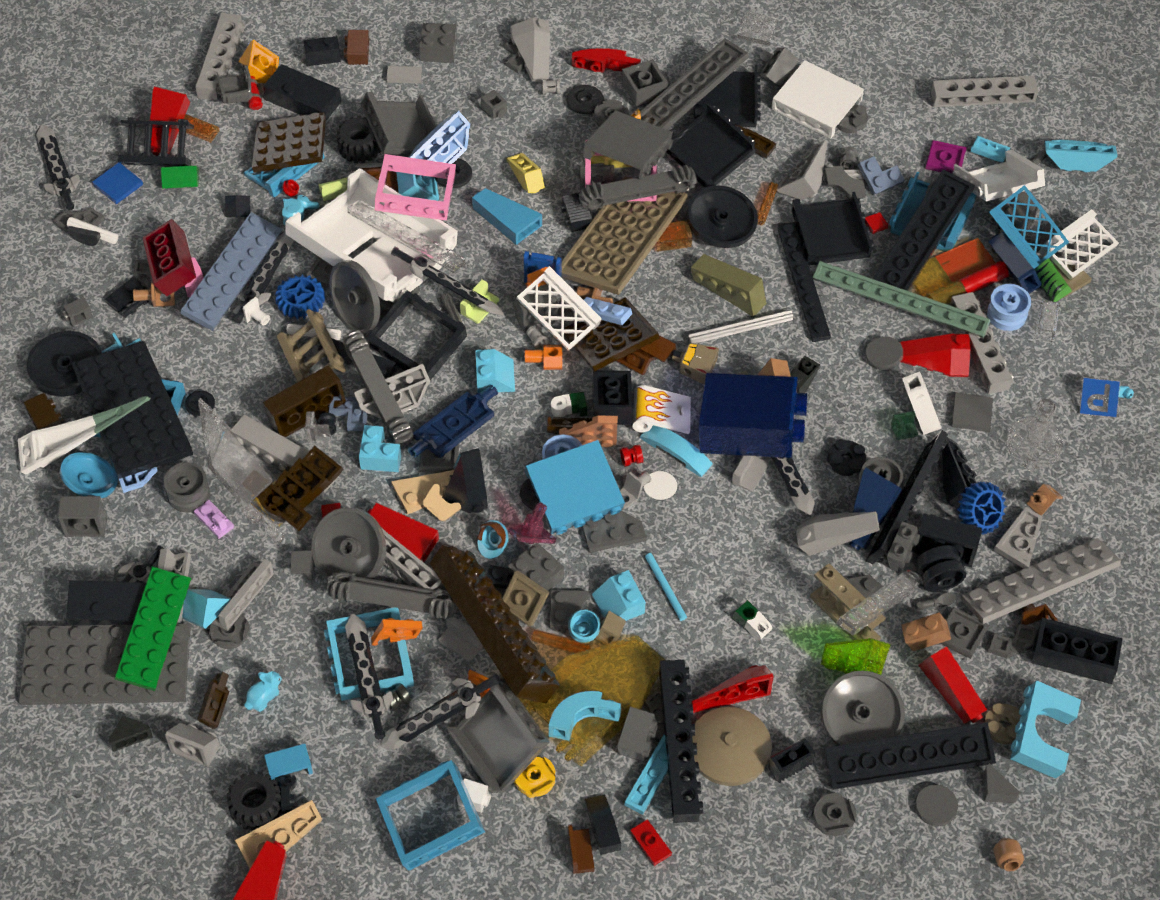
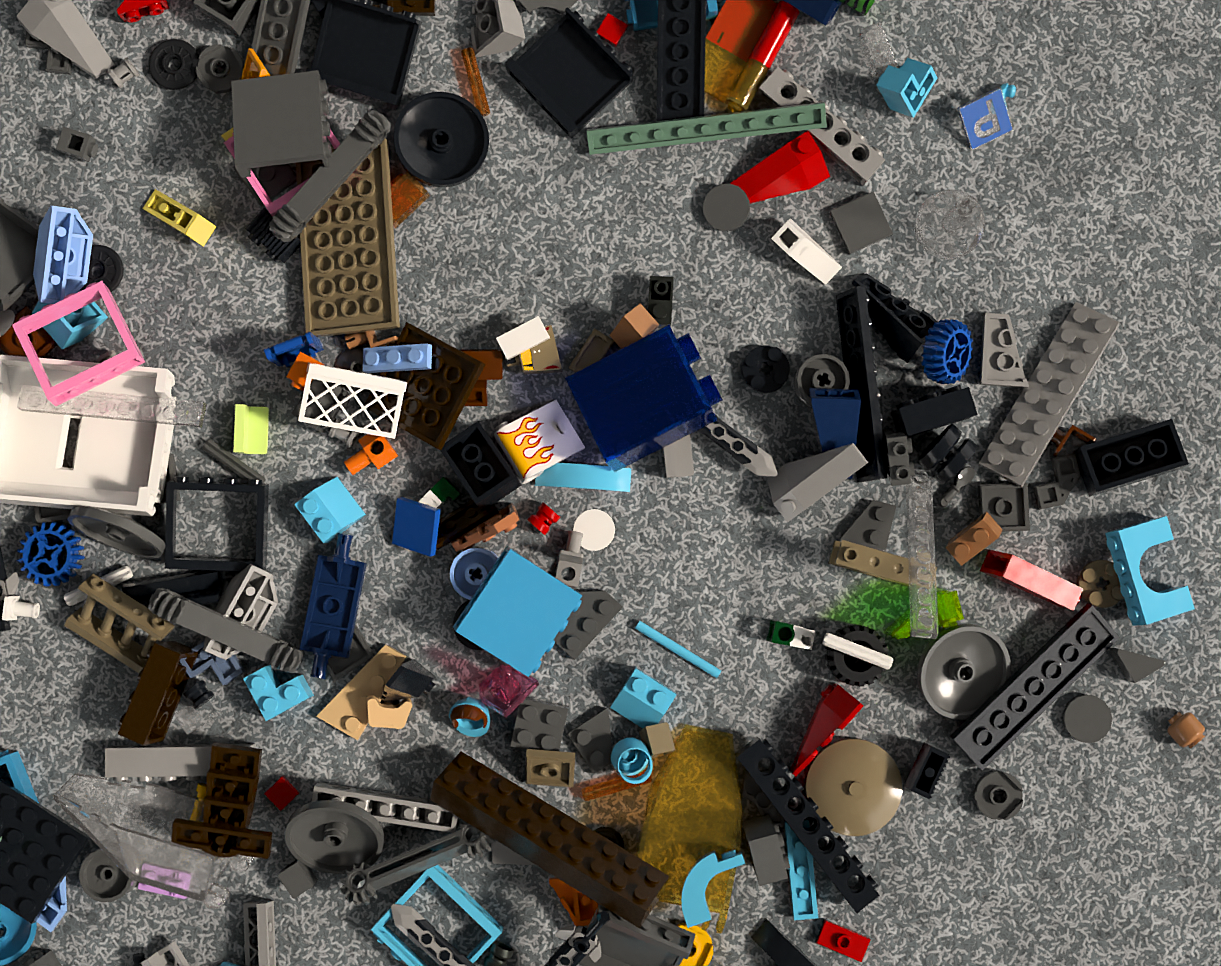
camera: 30 degrees left, 30 degrees up
(192, 401) = (34, 752): black gear -> none
(396, 630) = (449, 907): orange wing -> none
(410, 533) = (374, 772): red slope -> none
(422, 266) = (163, 444): black sword -> none
(498, 575) = (499, 753): black plate -> none
(507, 215) = (203, 293): dark azure slope -> none
(543, 408) = (416, 526): none -> blue tile
(694, 343) = (523, 338): none -> white tile
(730, 283) = (505, 226): olive wedge -> none
(740, 327) = (552, 272): axle -> none
(793, 644) = (857, 651): none -> white axle
(795, 644) = (836, 658): none -> black tyre
(803, 282) = (581, 164): black plate -> none
(904, 426) = (803, 291): clear green panel -> none
(1009, 307) = (824, 45): light blue wheel -> none
(1043, 498) = (997, 287): medium nougat bracket -> none
(1052, 348) = (906, 86): none -> medium azure brick

